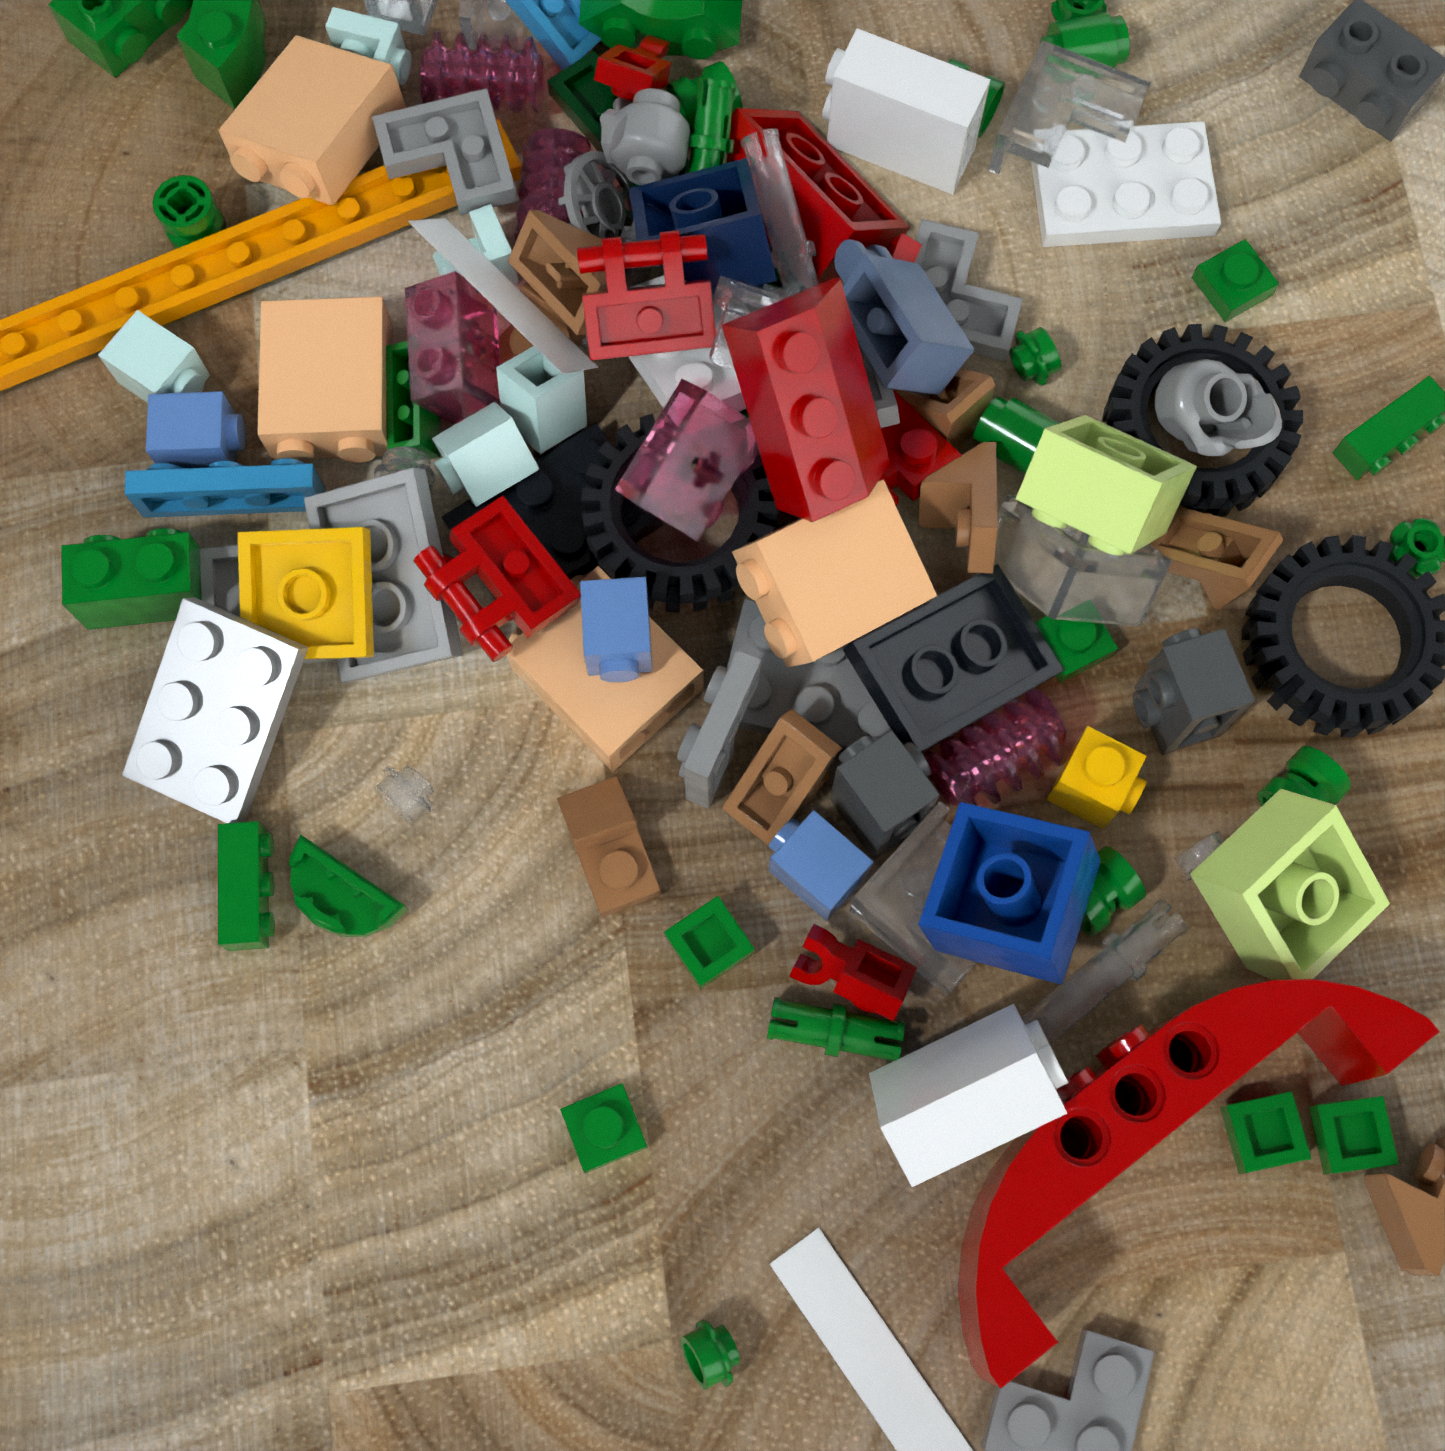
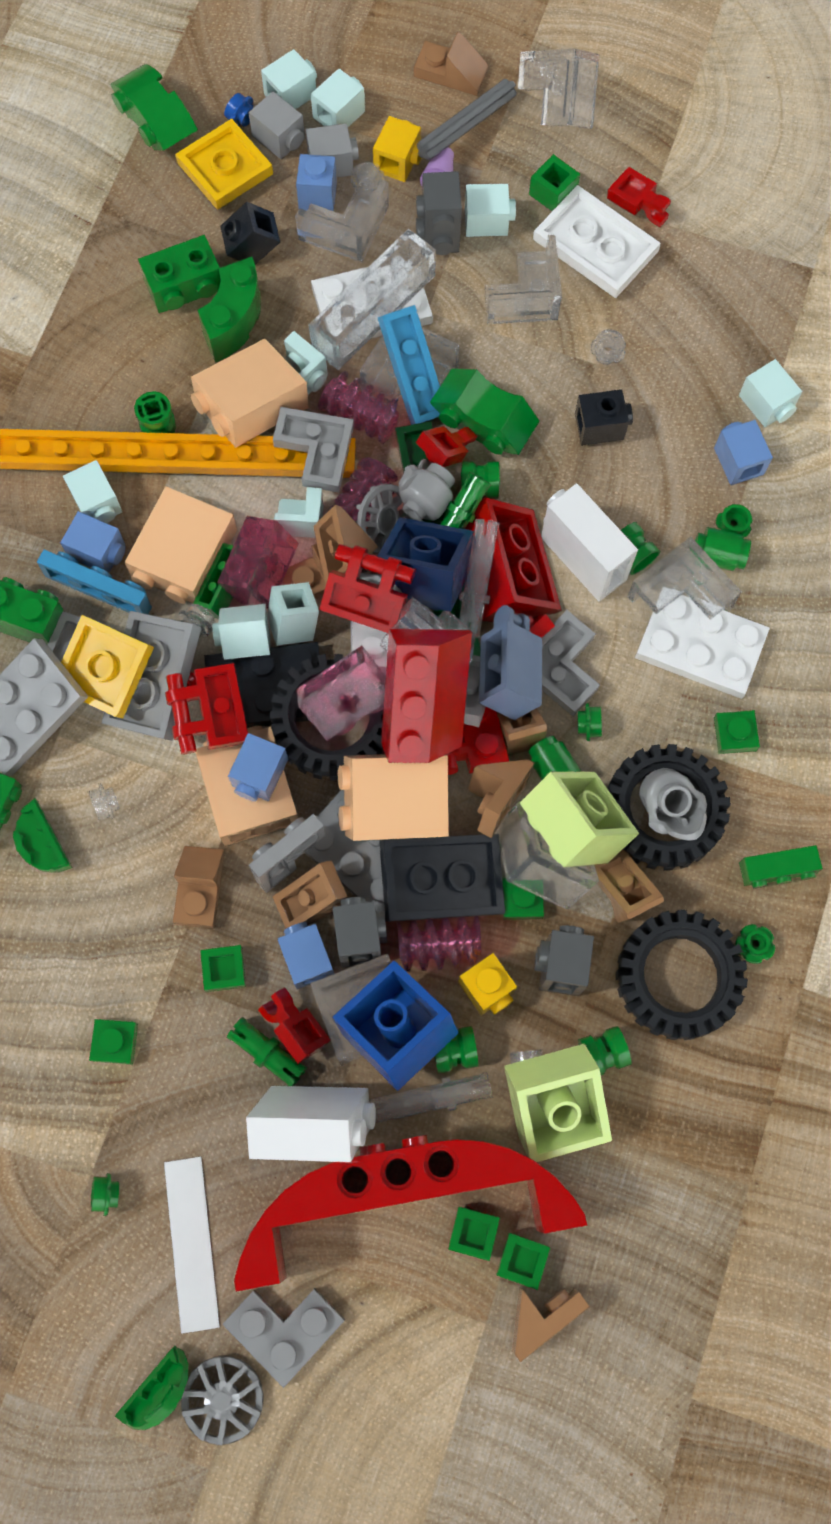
camera: 25 degrees right, 0 degrees up
(503, 295) = (296, 544): white sticker -> none

